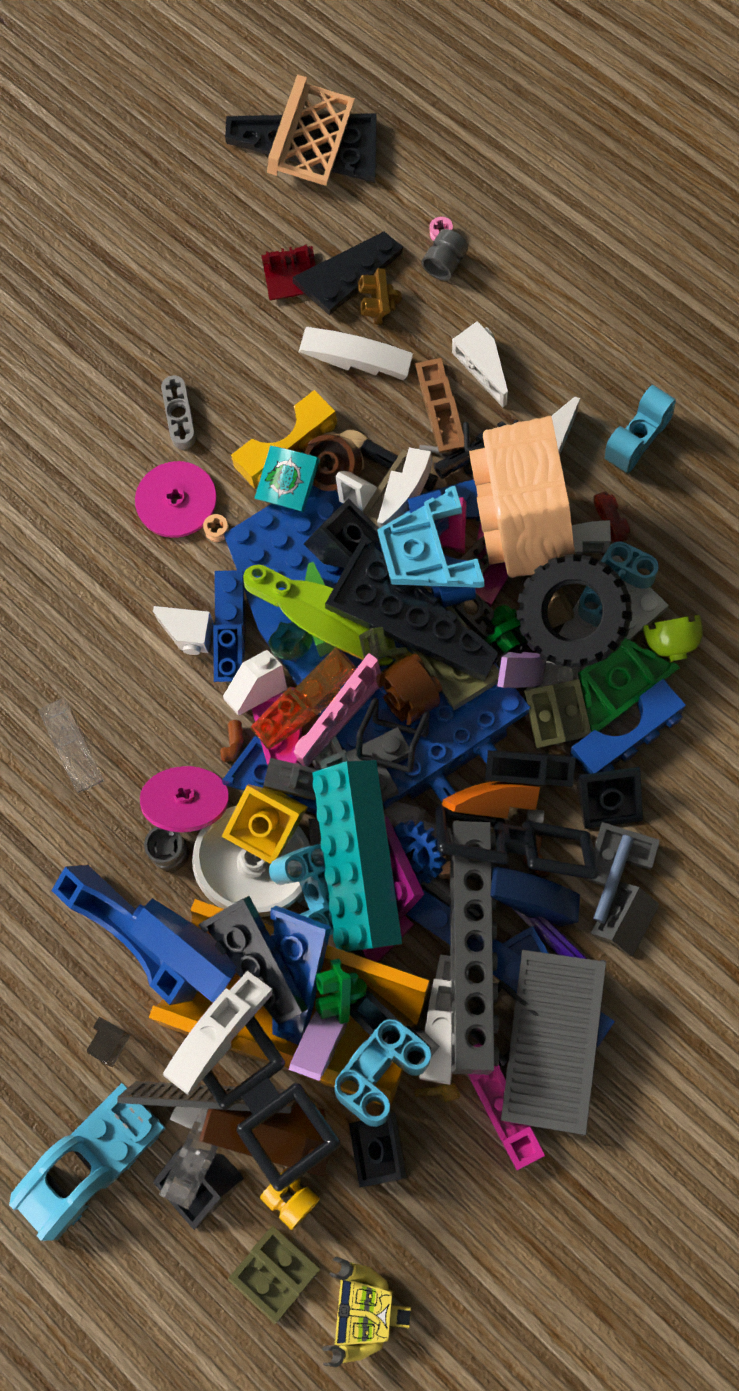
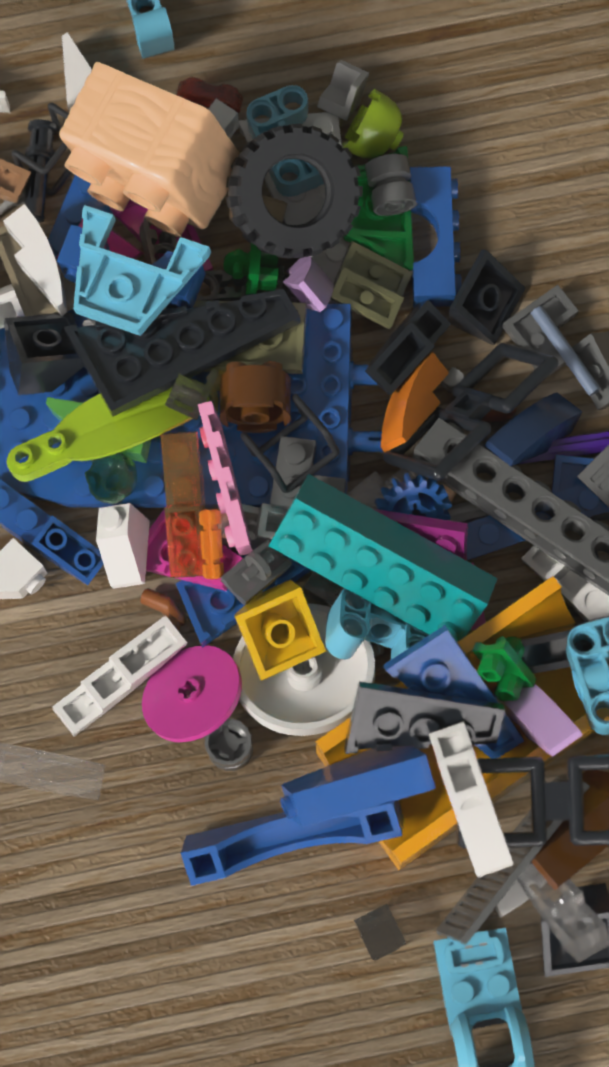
camera: 60 degrees left, 5 degrees up
(167, 745) = (120, 675): none -> white slope
(288, 735) = (211, 543): none -> orange axle
(634, 676) = (390, 182): none -> dark grey wheel
(686, 600) = (345, 90): none -> light grey panel

